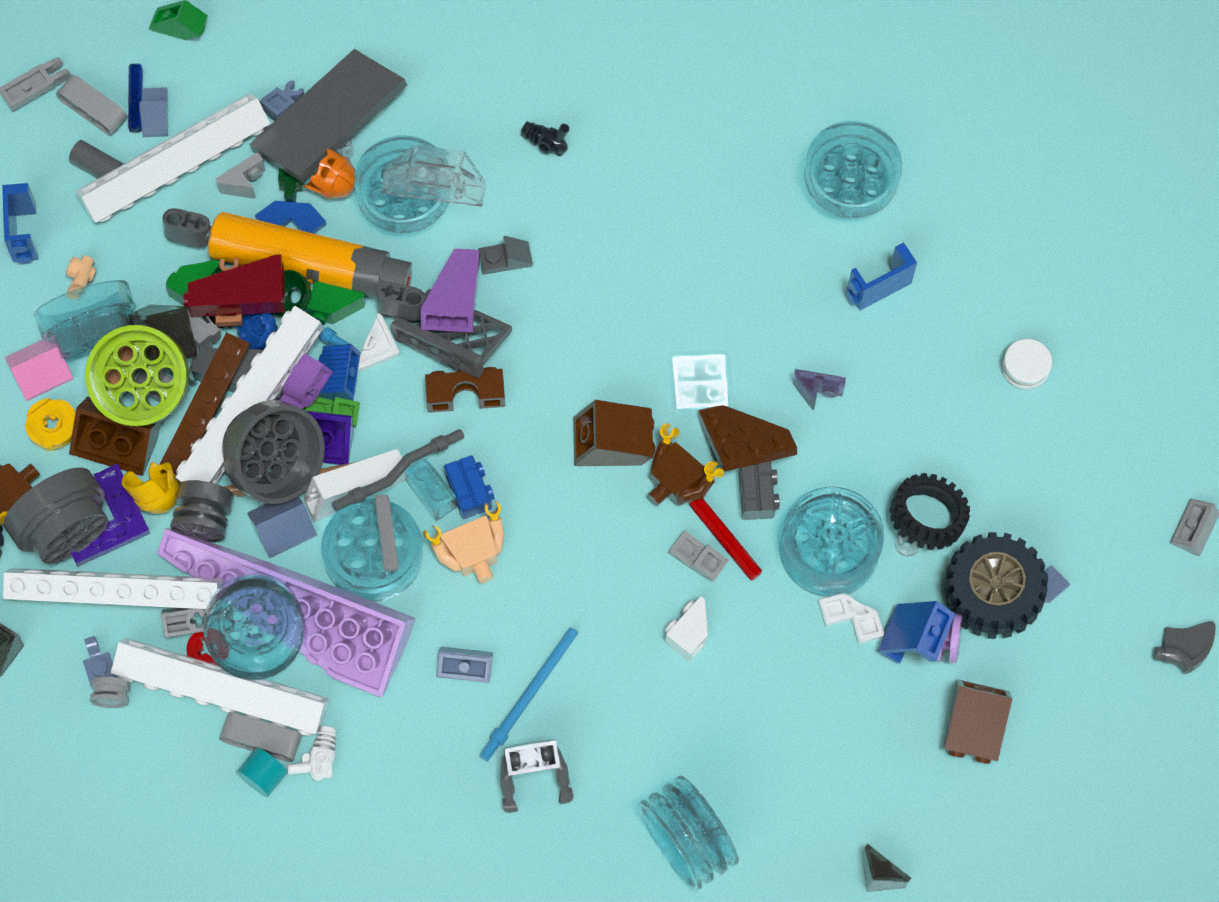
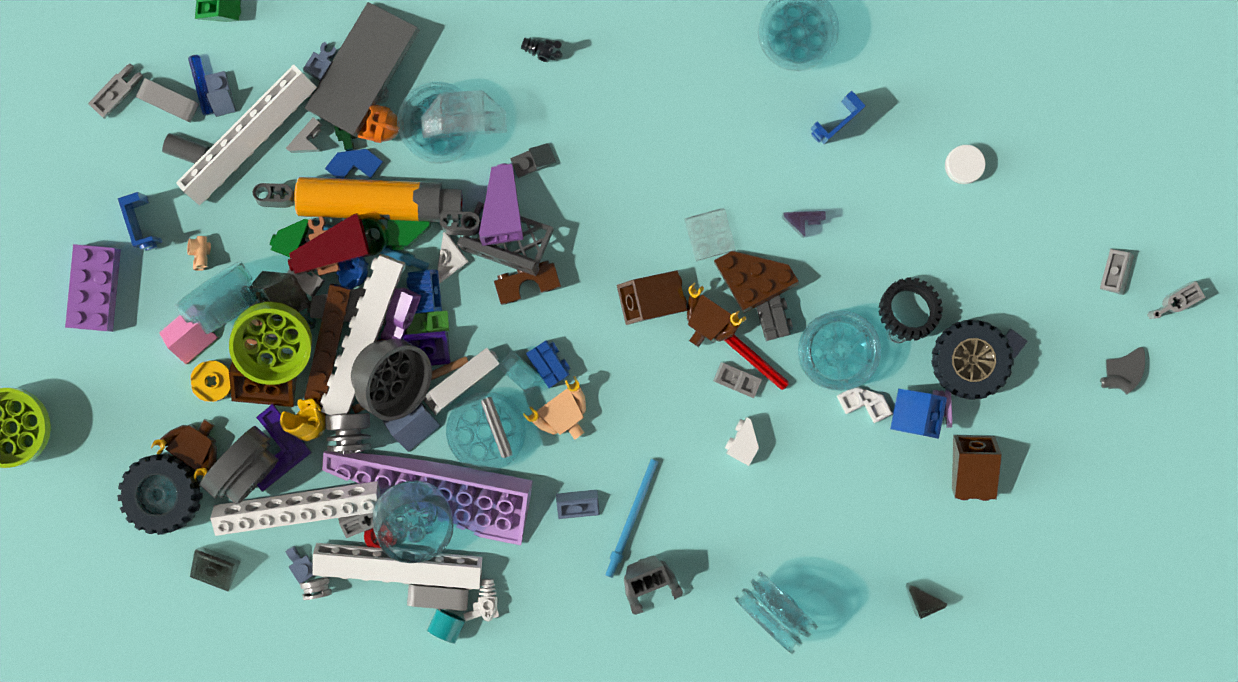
camera: 15 degrees left, 20 degrees up
(359, 494) = (467, 398): dark grey bar -> none

